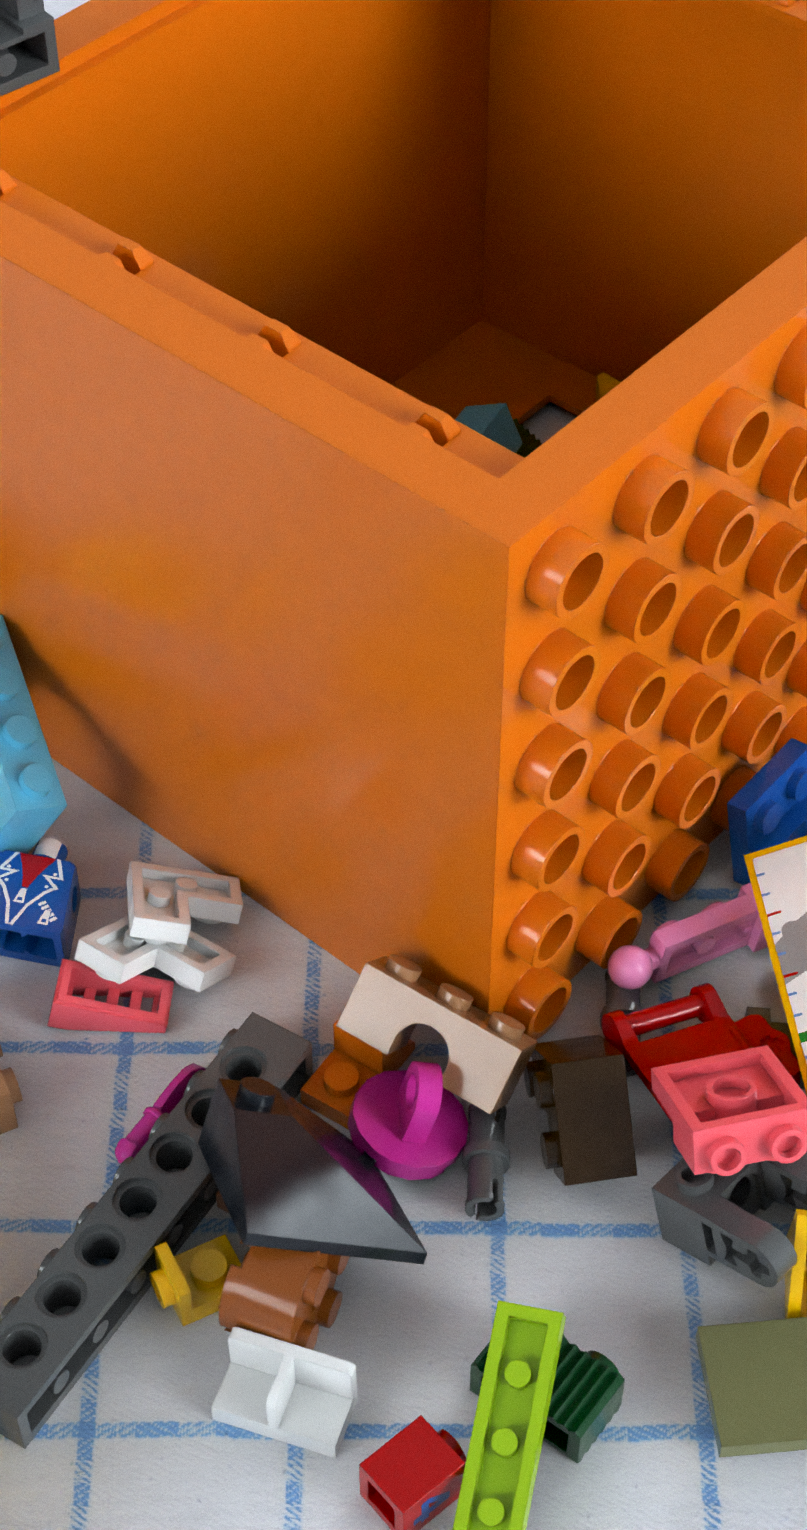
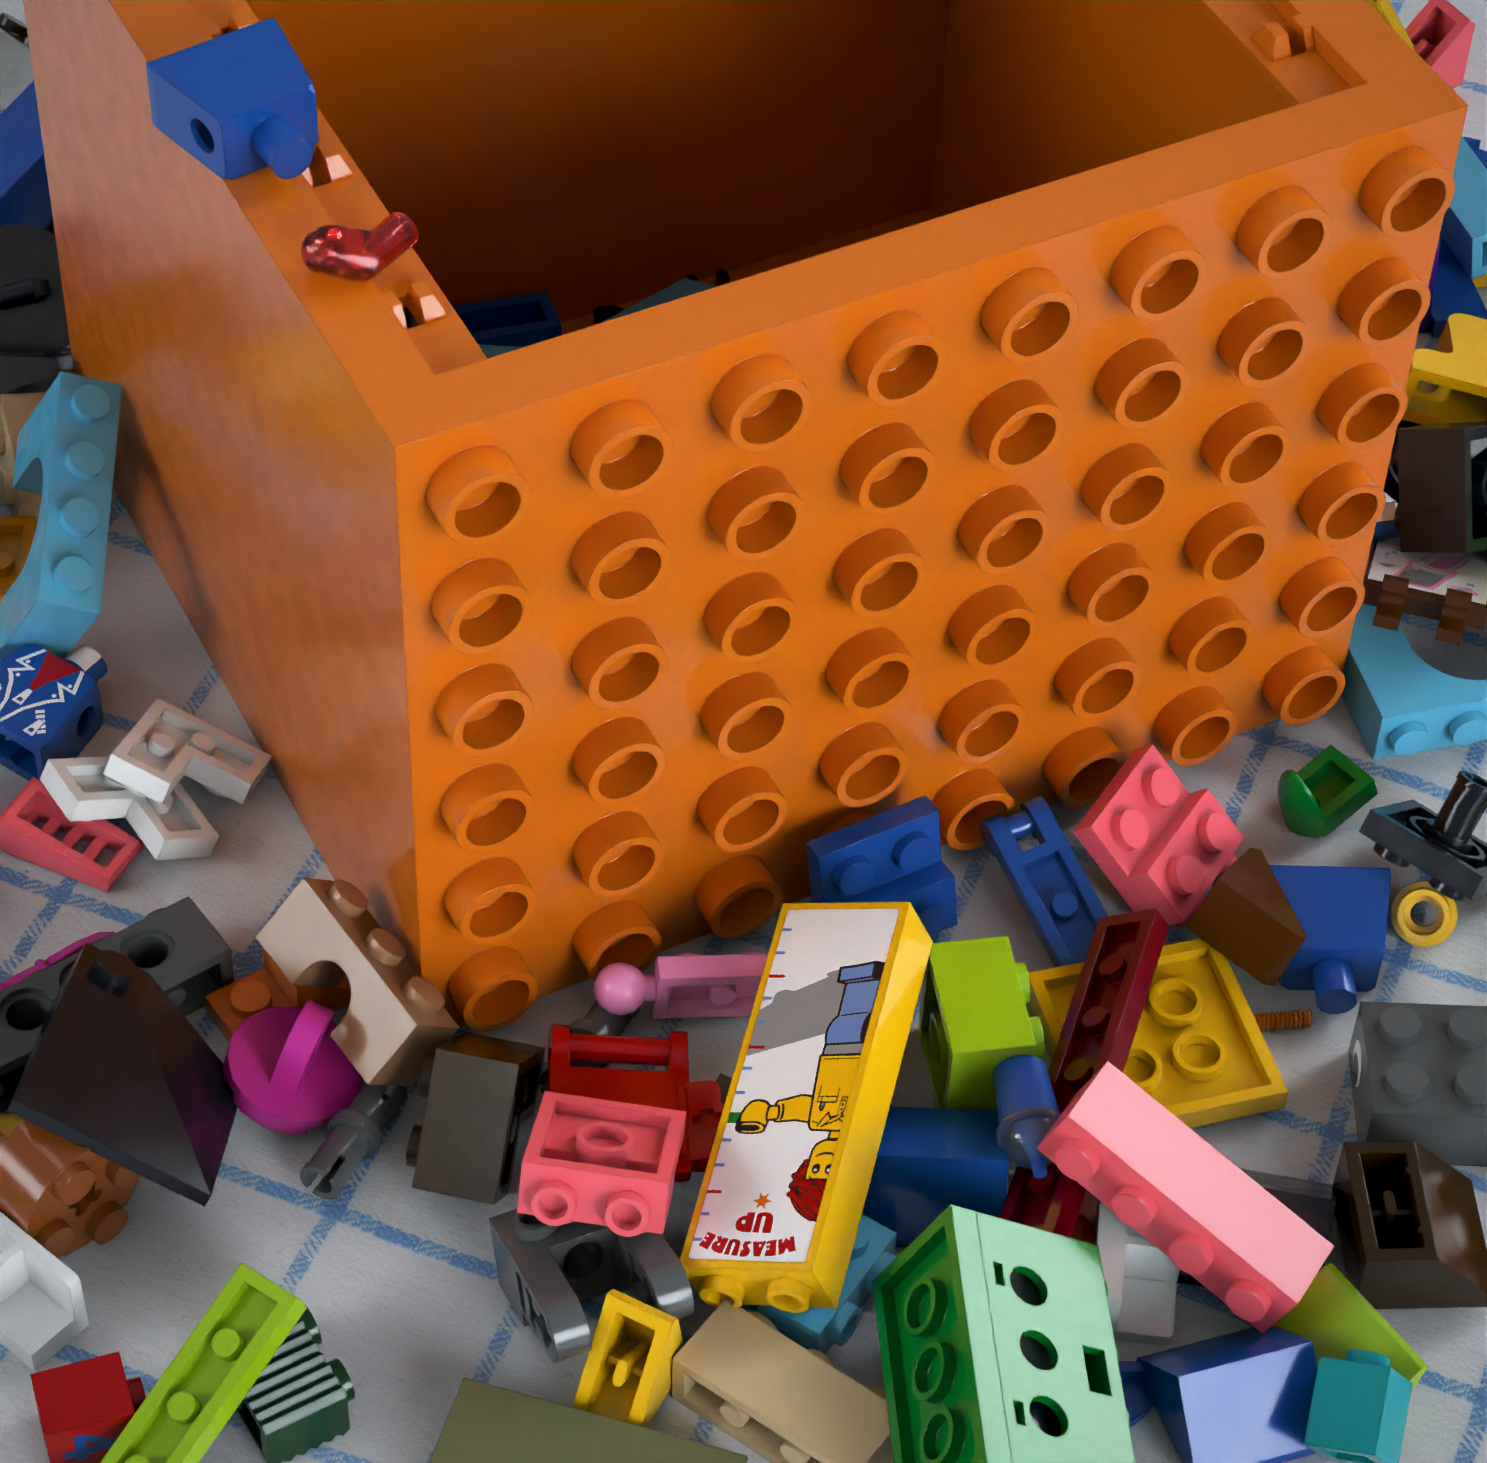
camera: 20 degrees right, 0 degrees up
(193, 305) = (238, 102): none -> blue torso
(371, 396) = (357, 252): none -> clear red arm

